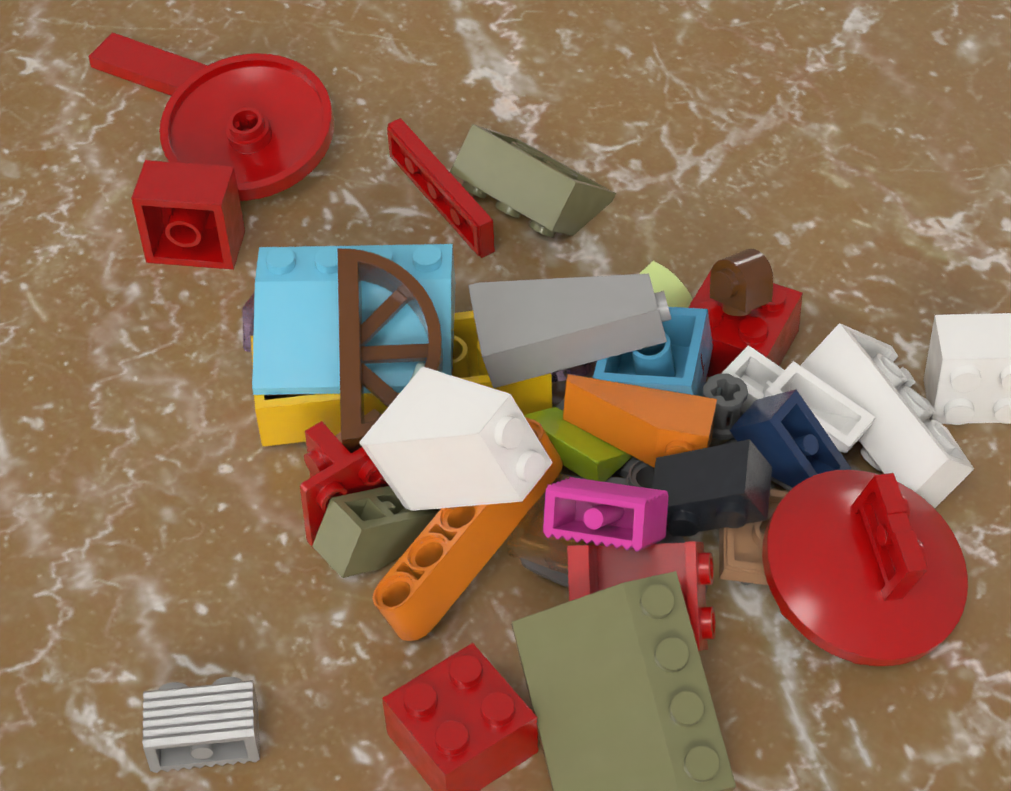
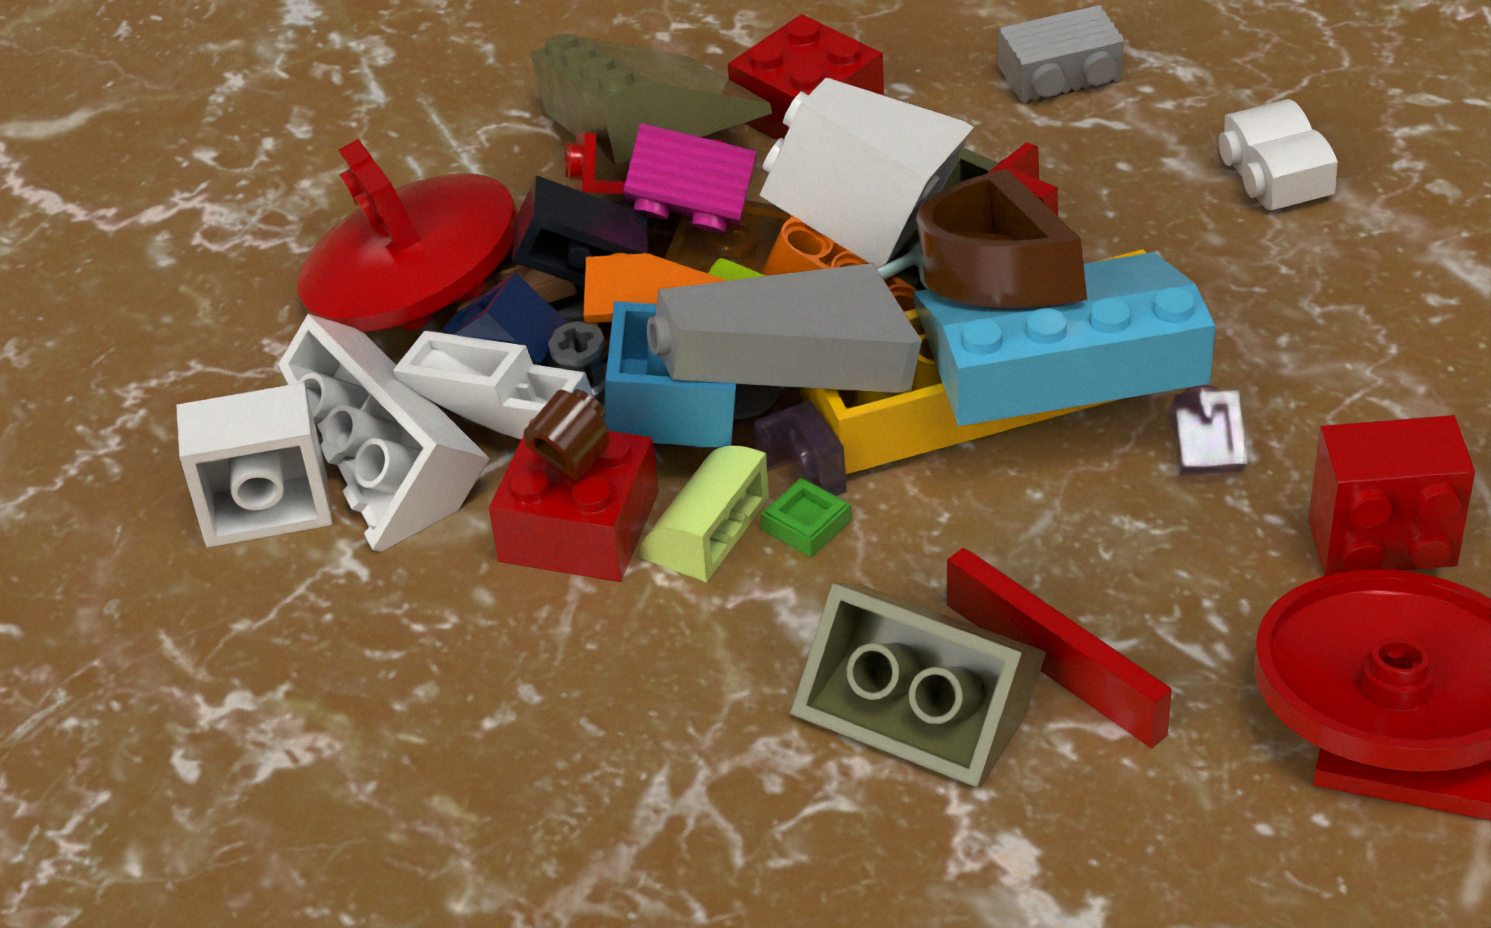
camera: 170 degrees right, 5 degrees down
(76, 555) = (1278, 154): none -> white brick

